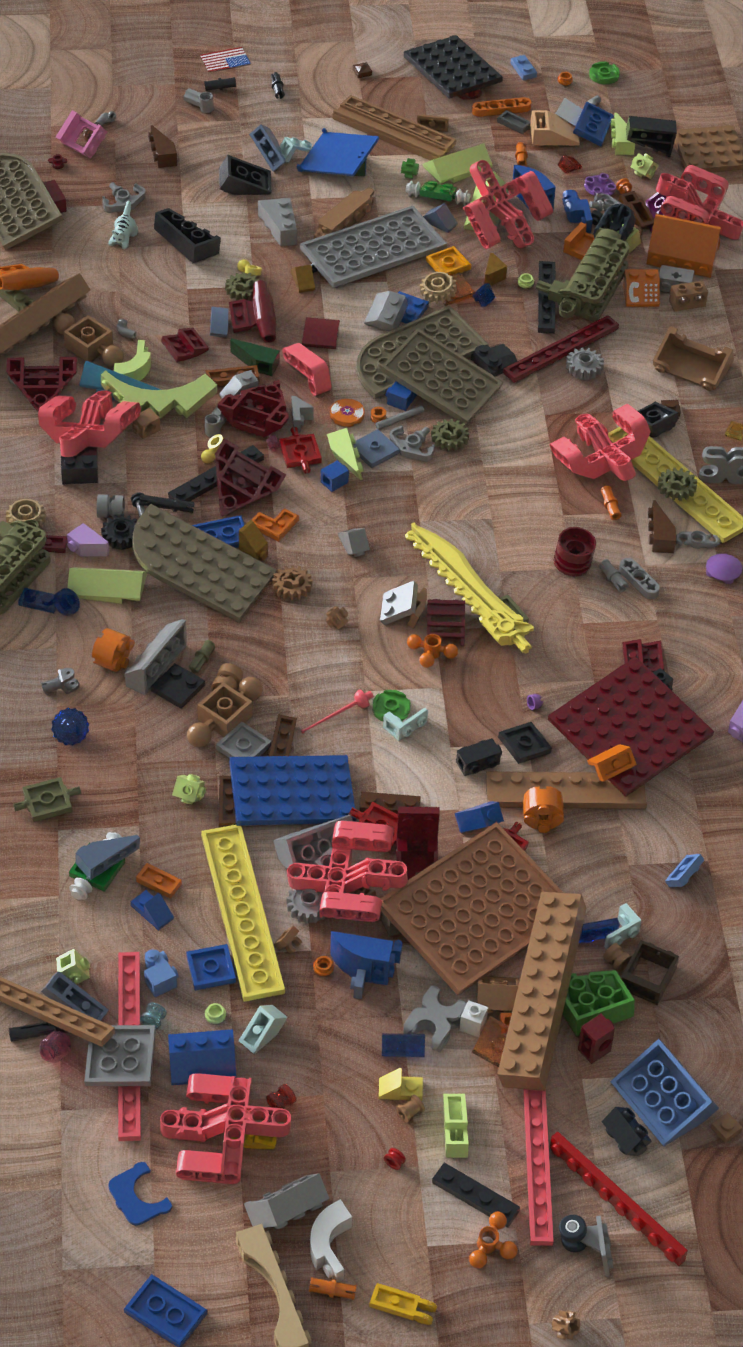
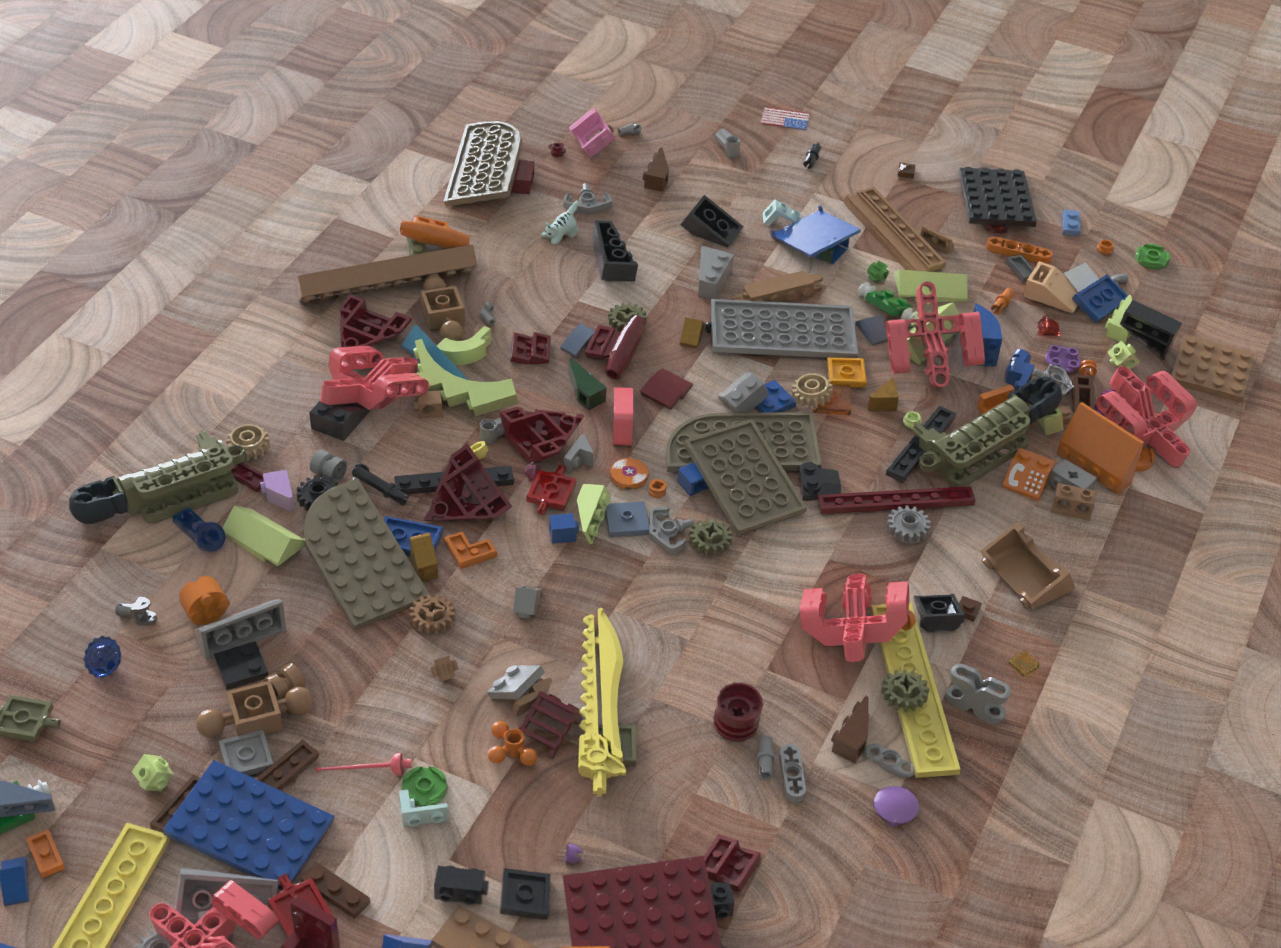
camera: 30 degrees right, 5 degrees down
(202, 656) = (286, 647): olive axle -> none
(220, 84) = (759, 136): black pin -> none
(223, 376) = (547, 394): dark orange plate -> none
(238, 383) = (545, 401): light grey slope -> none
(244, 266) = (648, 304): light yellow plate -> none
(268, 146) = (756, 202): sand blue slope -> none
(399, 417) = (677, 499): light grey bar -> none
(484, 295) = (857, 416): clear blue tile -> none
(611, 502) = (824, 679): orange pin -> none

